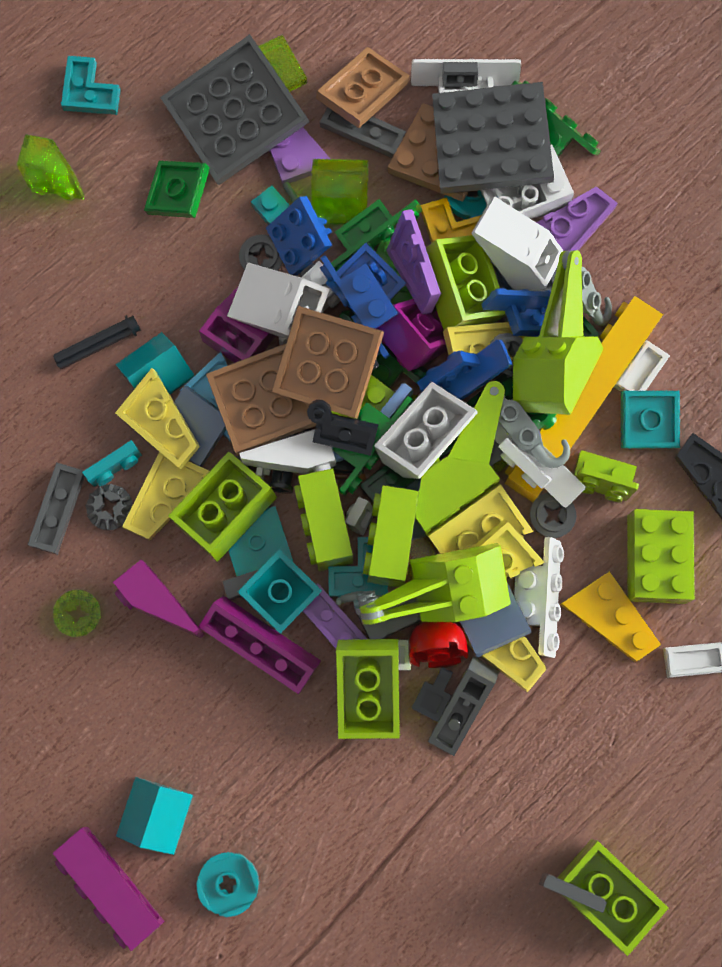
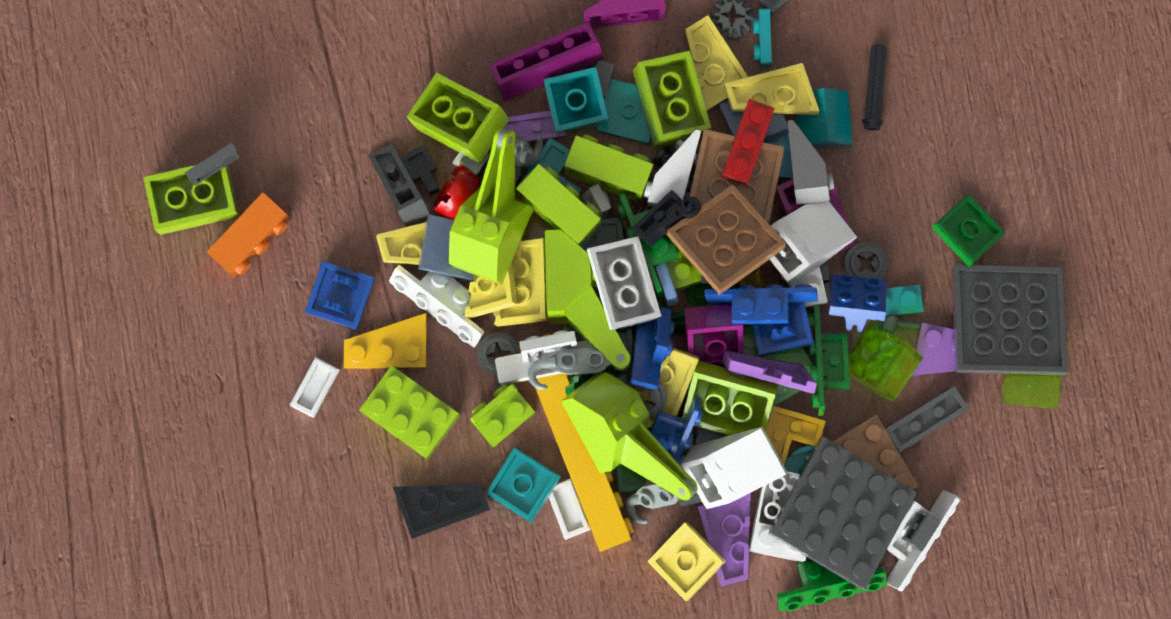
camera: 125 degrees right, 5 degrees up
(47, 169) = (1051, 133): clear neon green slope -> none
(81, 92) = (1106, 206): teal plate -> none
(213, 339) = (809, 169): none -> light grey slope
(222, 405) = (748, 142): none -> red plate
(362, 87) = (962, 441): medium nougat plate -> none
(600, 692) = (340, 295): none -> blue plate
(605, 815) = (249, 235): none -> orange brick
(617, 242) = (686, 561): none -> light yellow plate

